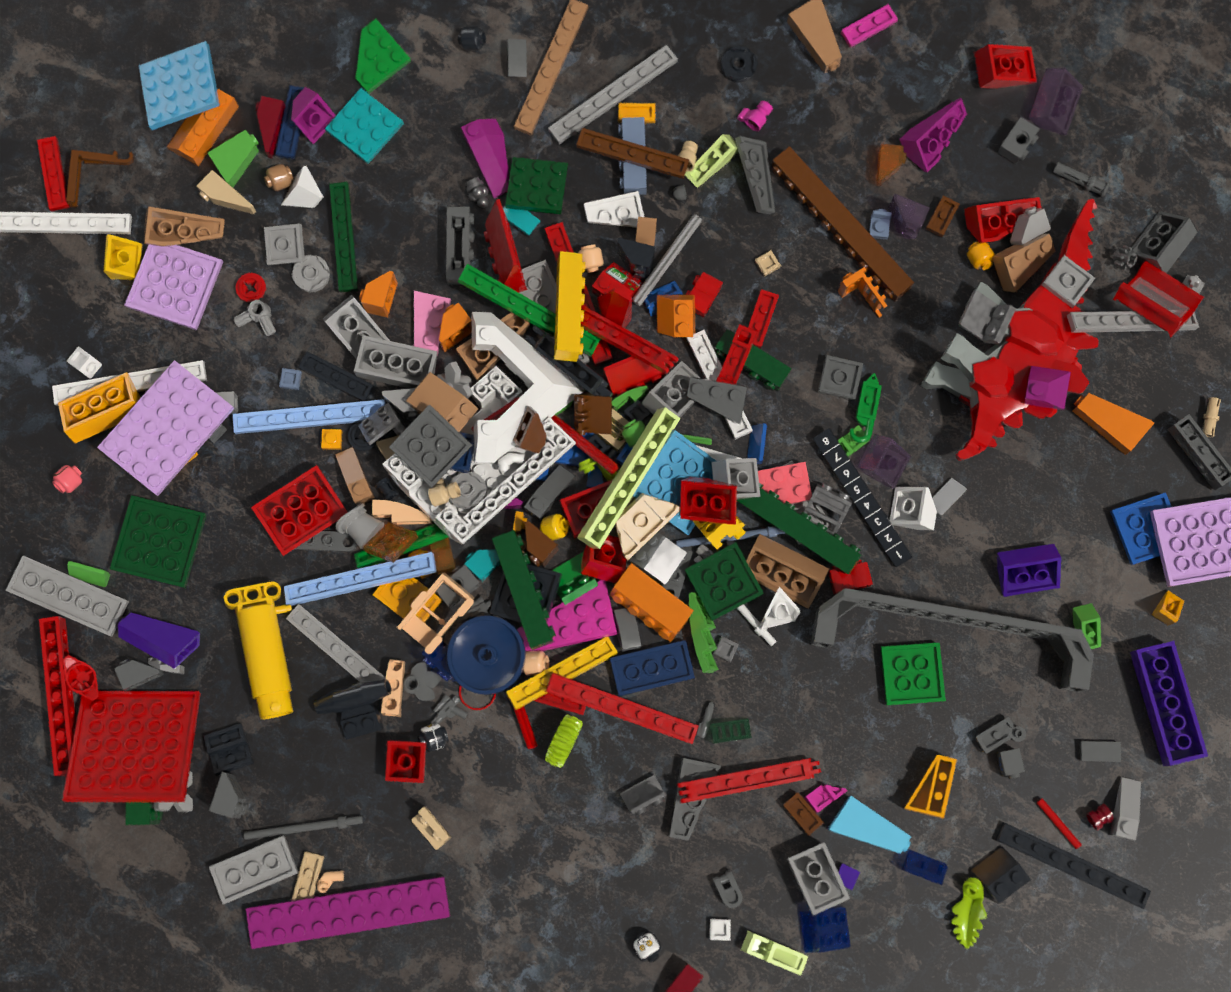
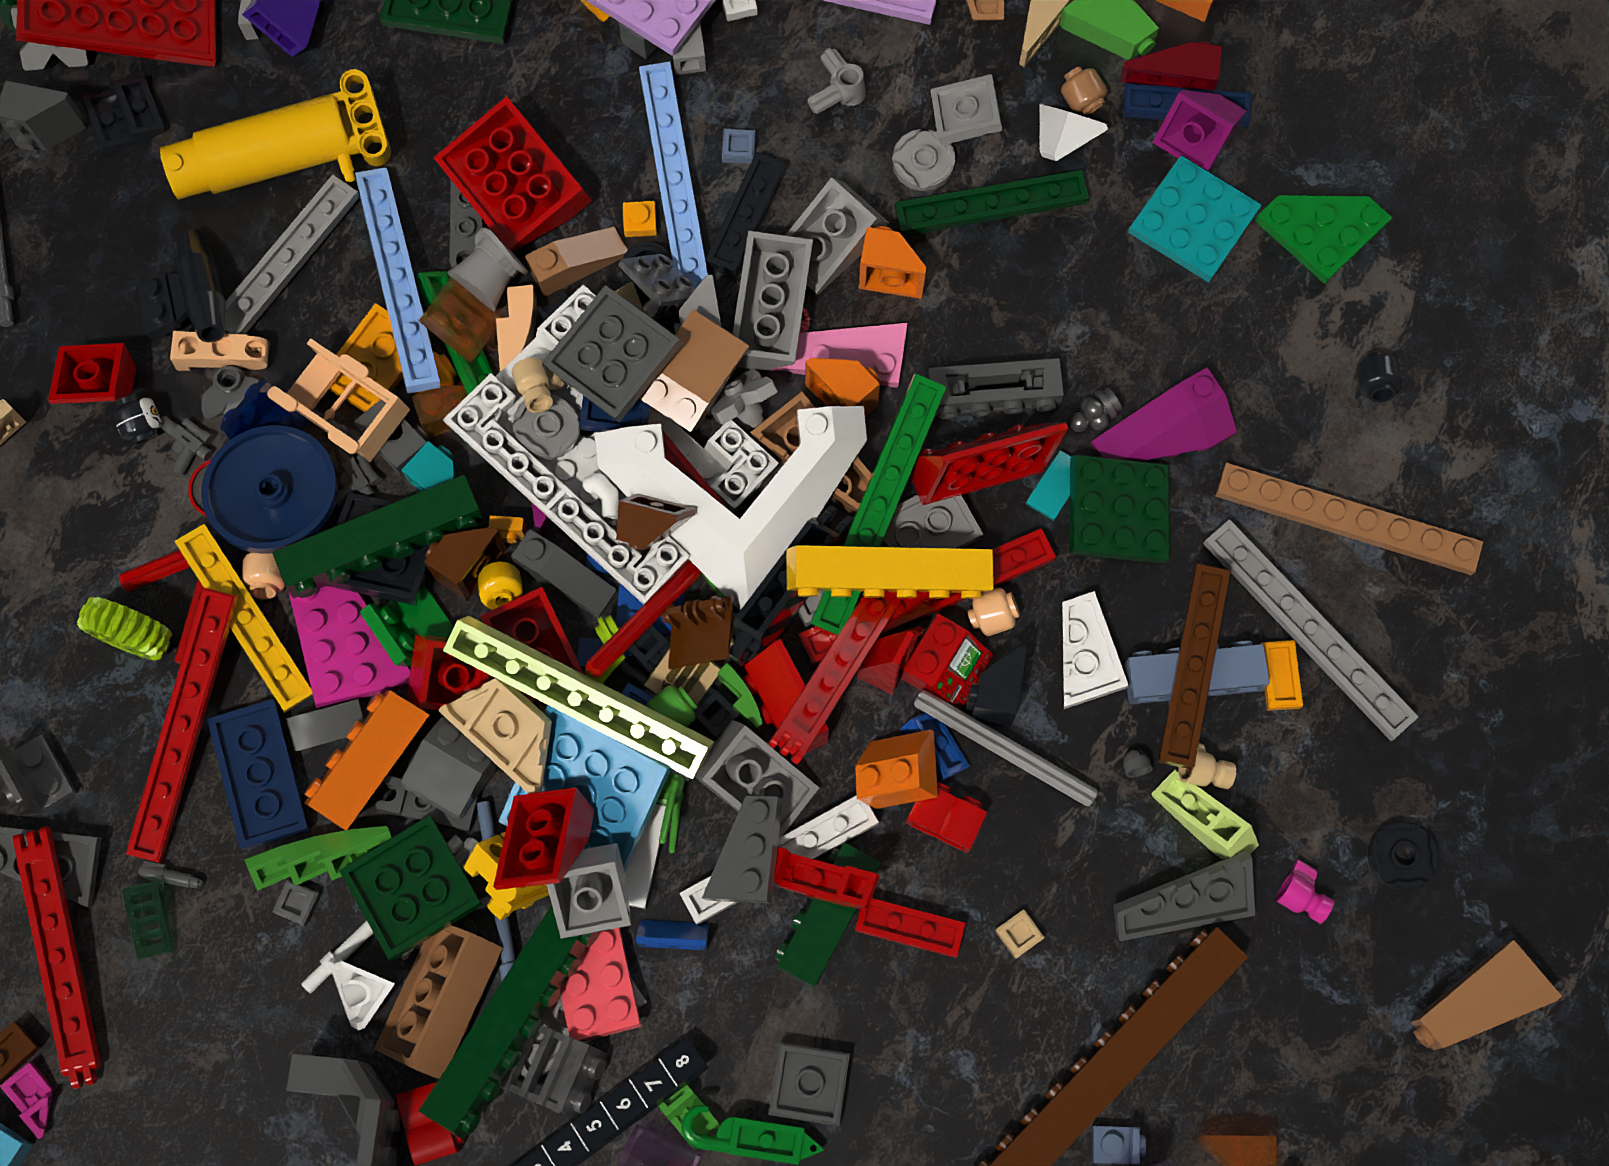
camera: 85 degrees right, 5 degrees down
(250, 279) = (887, 57): red gear -> none
(517, 57) = (1354, 456): dark grey slope -> none
(646, 230) = (1045, 703): medium nougat slope -> none
(860, 281) = (990, 1089): orange plate -> none
(869, 26) = (1518, 1103): dark pink plate -> none

